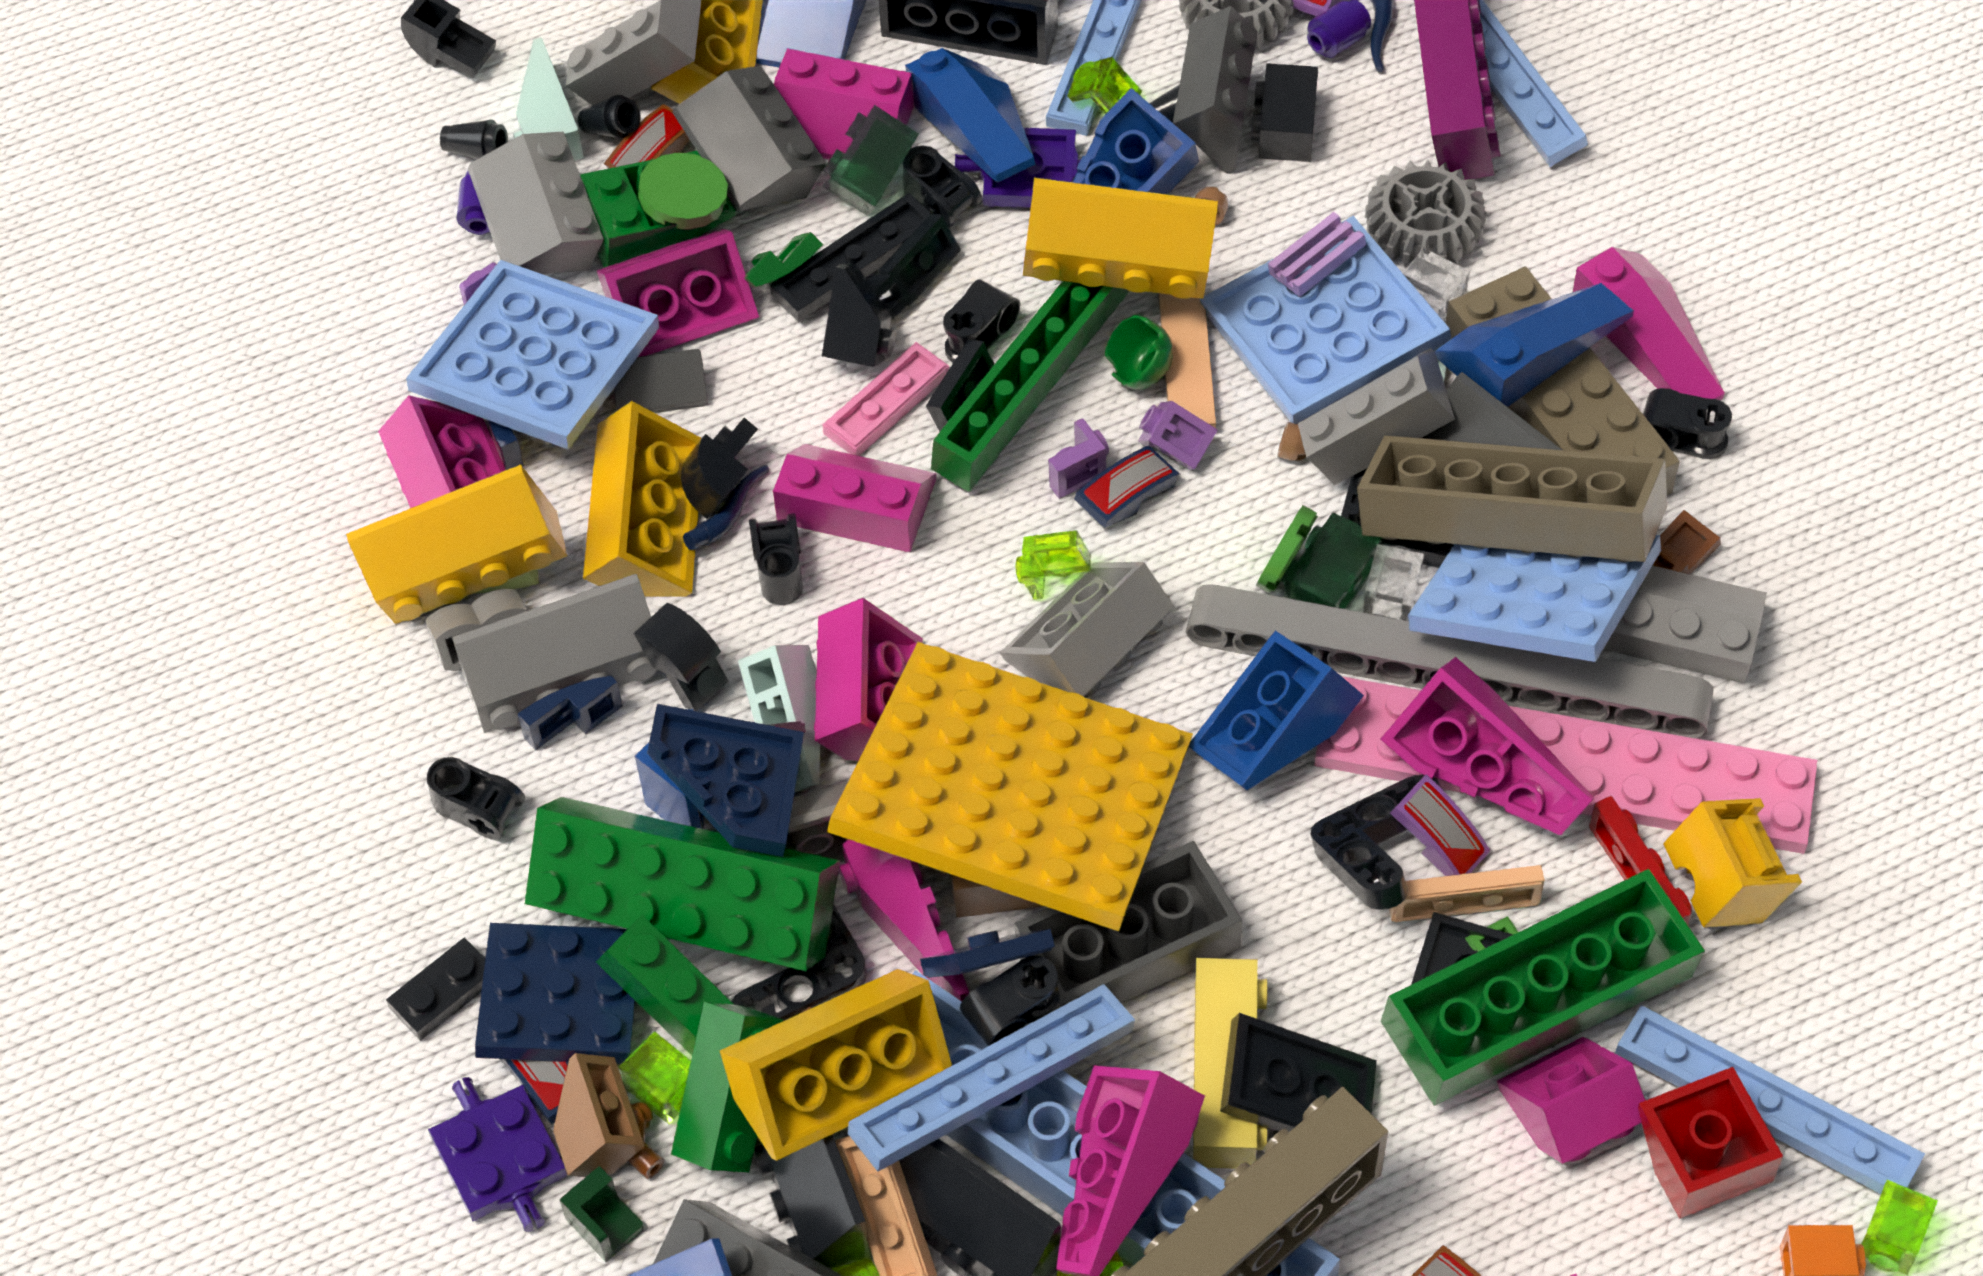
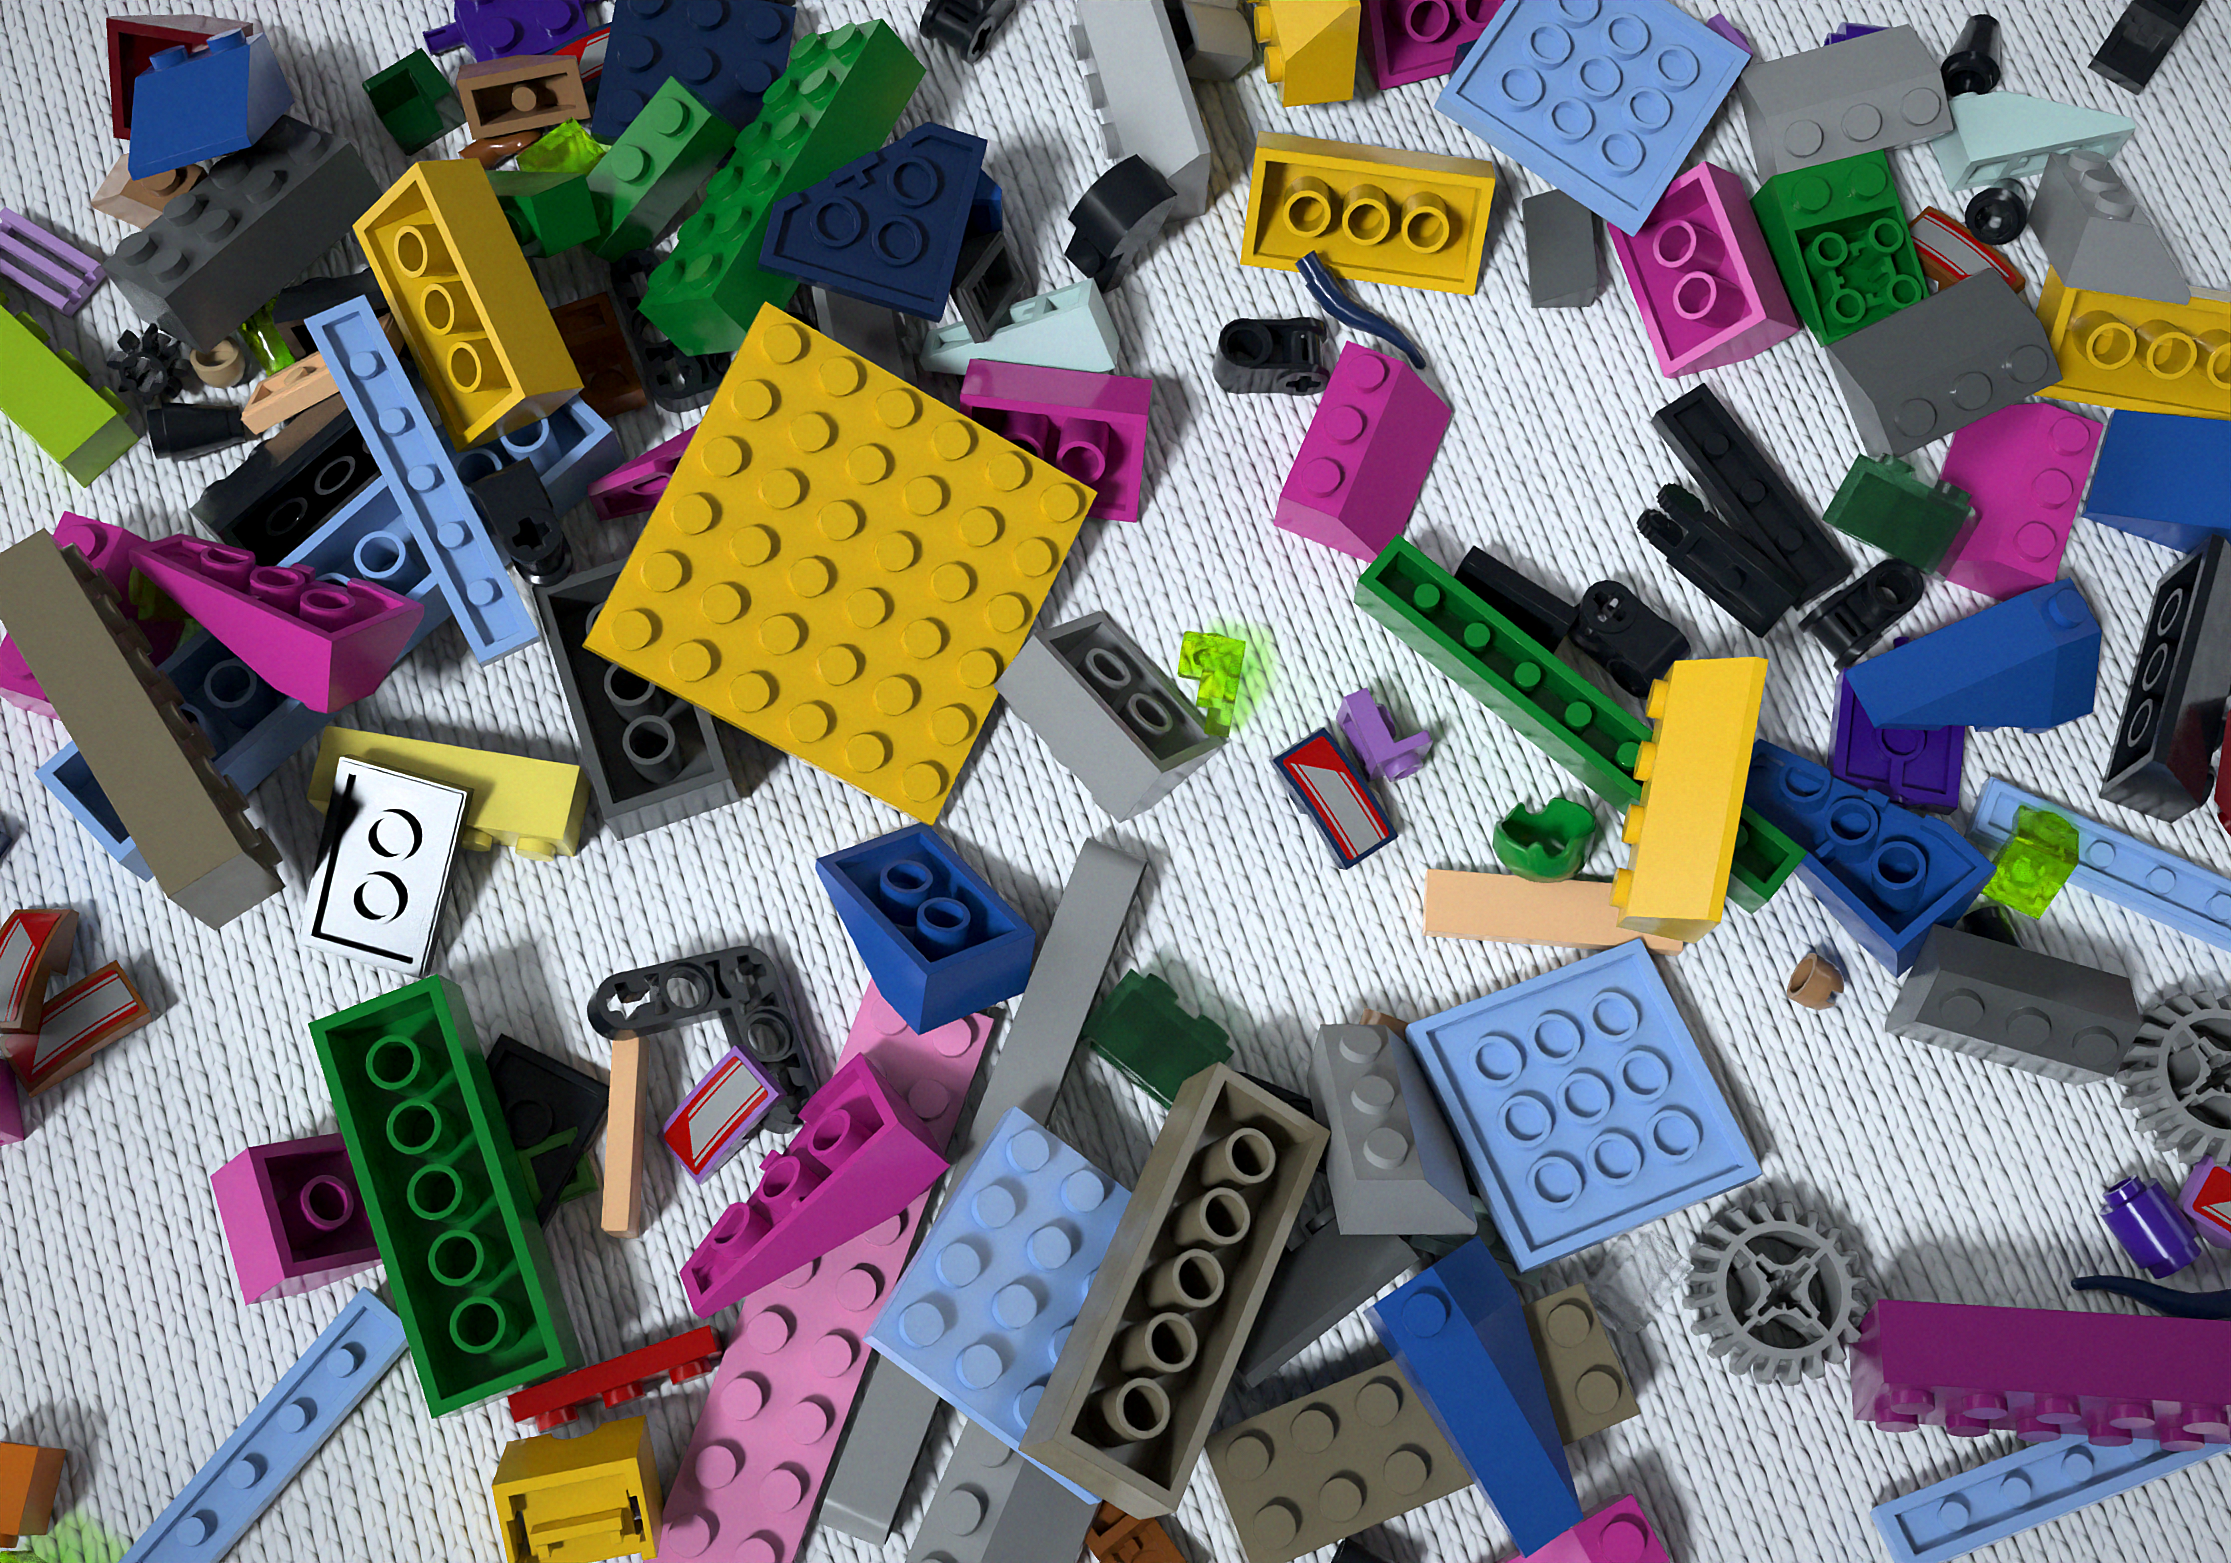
camera: 90 degrees right, 15 degrees up
(581, 703) = (1077, 111): dark blue slope -> none
(682, 190) = (1845, 266): bright green tile -> none
(712, 468) = (1400, 281): black brick -> none
(771, 267) = (1727, 386): green slope -> none
(856, 320) = (1625, 472): black slope -> none
(885, 400) = (1513, 516): bright pink tile -> none
(987, 951) = (588, 491): dark blue plate -> none
(1176, 433) = (1406, 870): medium lavender bracket -> none
(1287, 112) = (1983, 1118): black brick -> none
(1287, 549) = (1182, 981): bright green tile -> none
(1311, 251) = (1706, 1089): lavender tile -> none
(1393, 582) = (1120, 1123): clear brick -> none
(1708, 1142) = (177, 1370): red slope -> none

